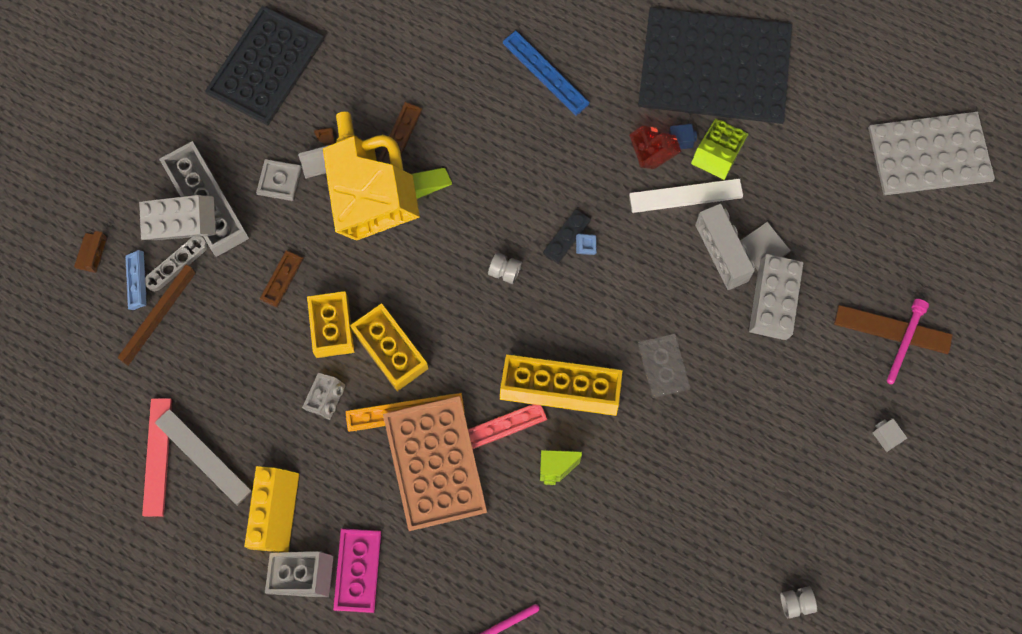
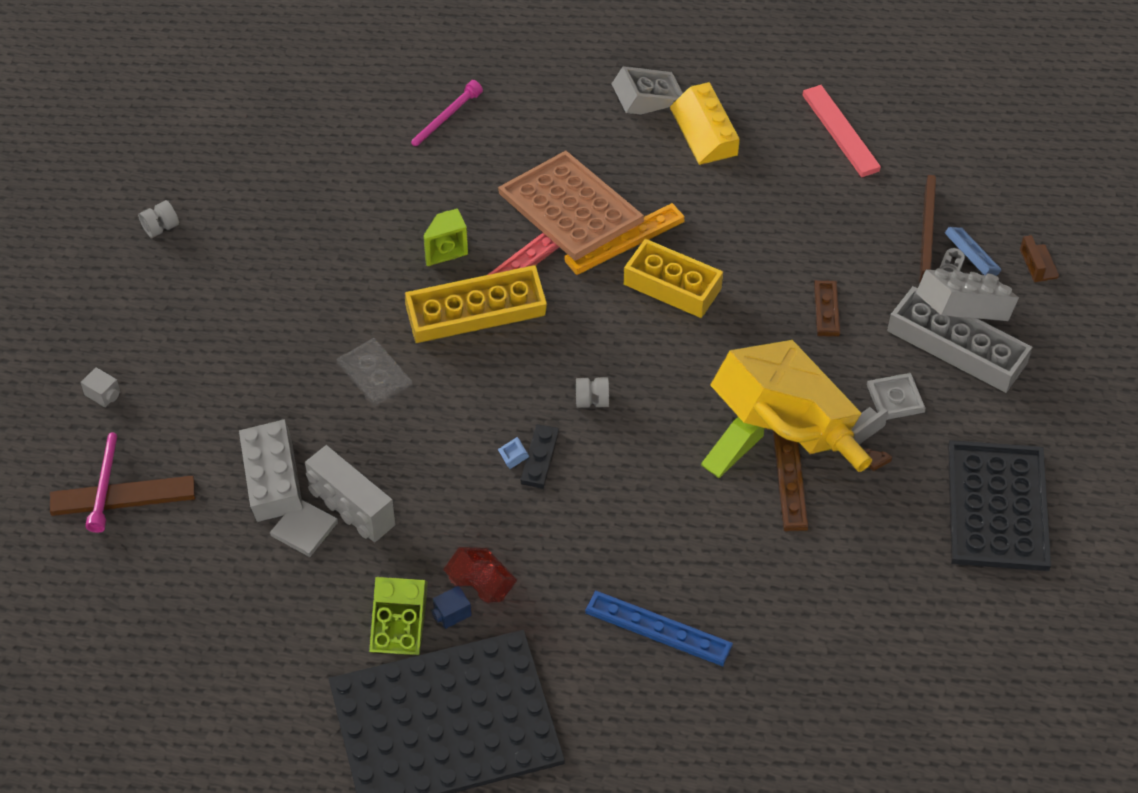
camera: 155 degrees right, 20 degrees down
(203, 457) = (798, 140): light grey tile -> none
(324, 395) = (714, 223): light grey bracket -> none
(330, 324) = (747, 276): yellow brick -> none
(357, 570) = (597, 115): dark pink tile -> none
(685, 195) = (419, 549): white tile -> none
(931, 153) = (122, 714): light grey plate -> none

